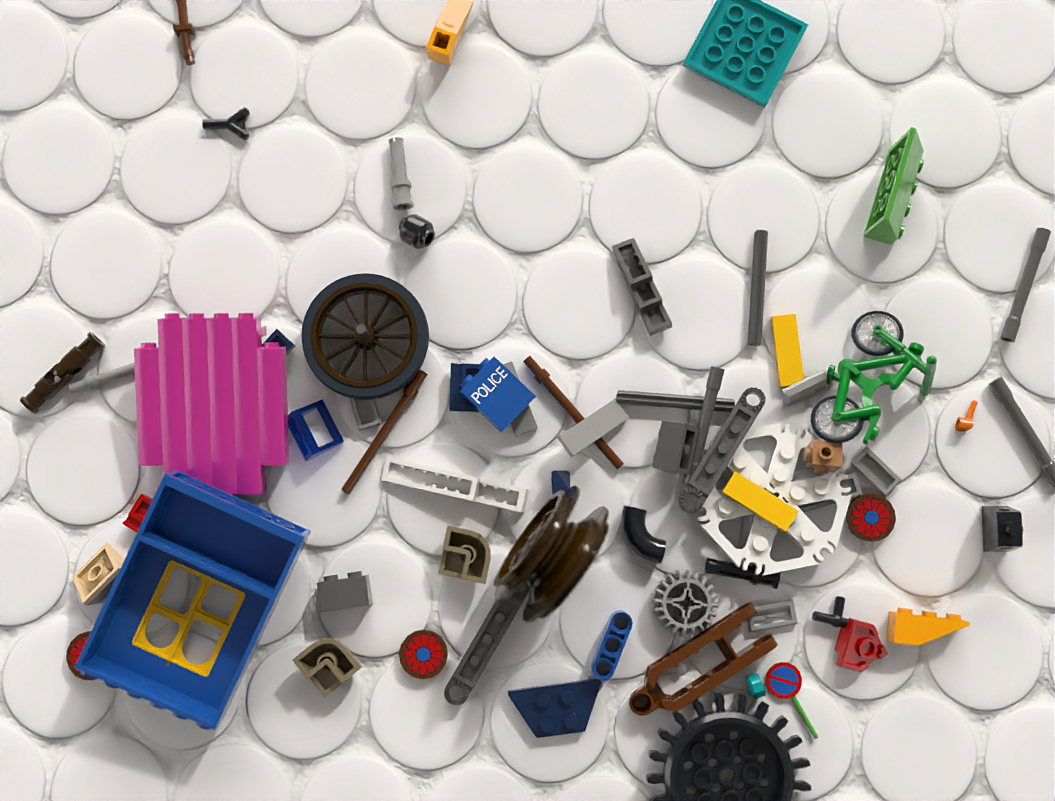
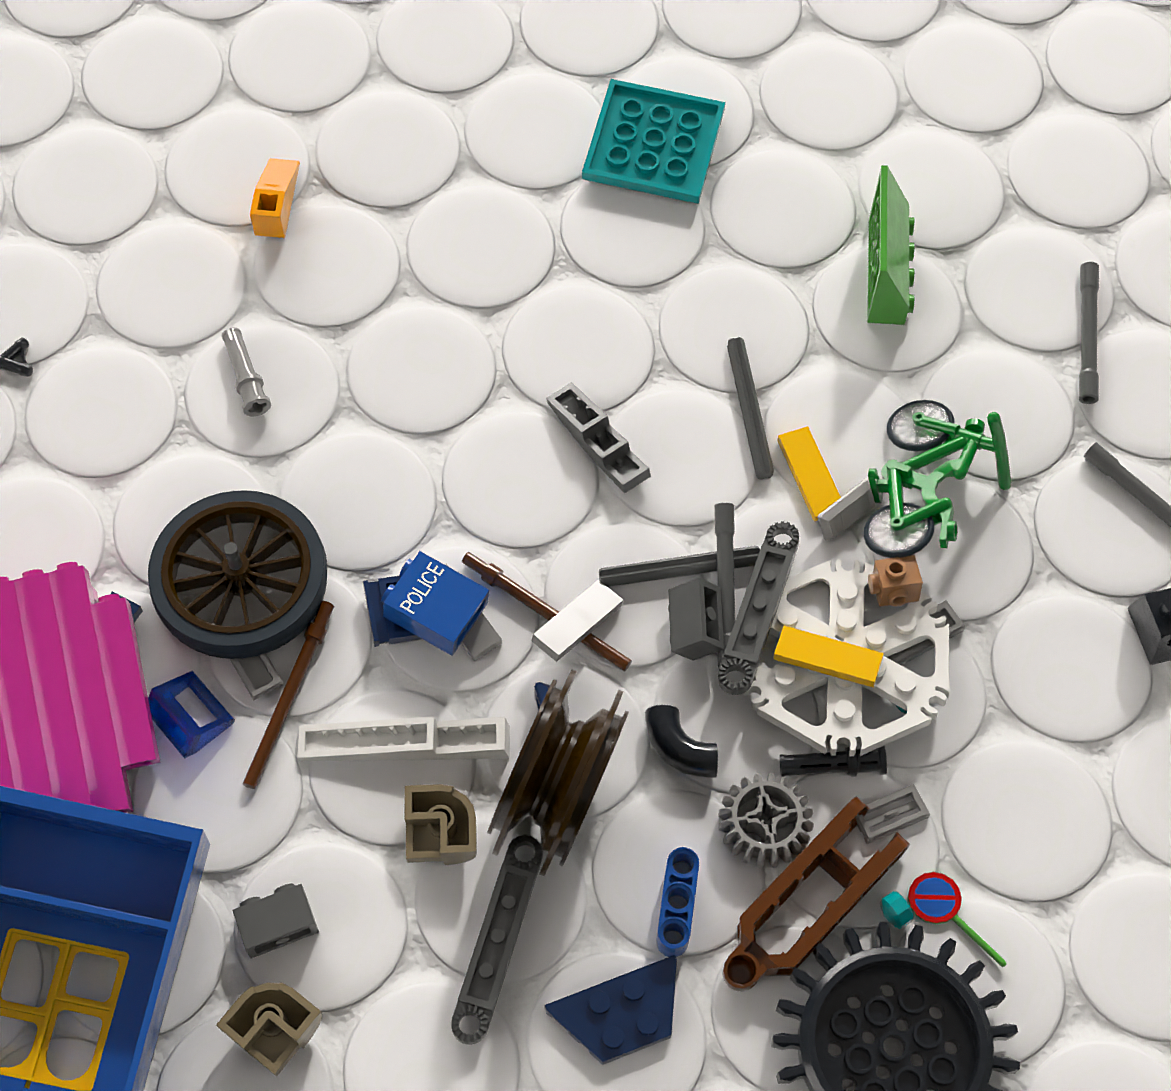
camera: 15 degrees left, 20 degrees down
(416, 231) = (281, 433): black head -> none
(423, 654) = (409, 983): tile -> none
(836, 619) = (981, 796): black piece -> none
(858, 645) = (1022, 821): red plate -> none
(870, 517) = (985, 653): tile -> none
(875, 471) = (973, 594): light grey tile -> none
(918, 629) = (1090, 779): light orange slope -> none
(966, 423) = (1068, 510): orange hand -> none

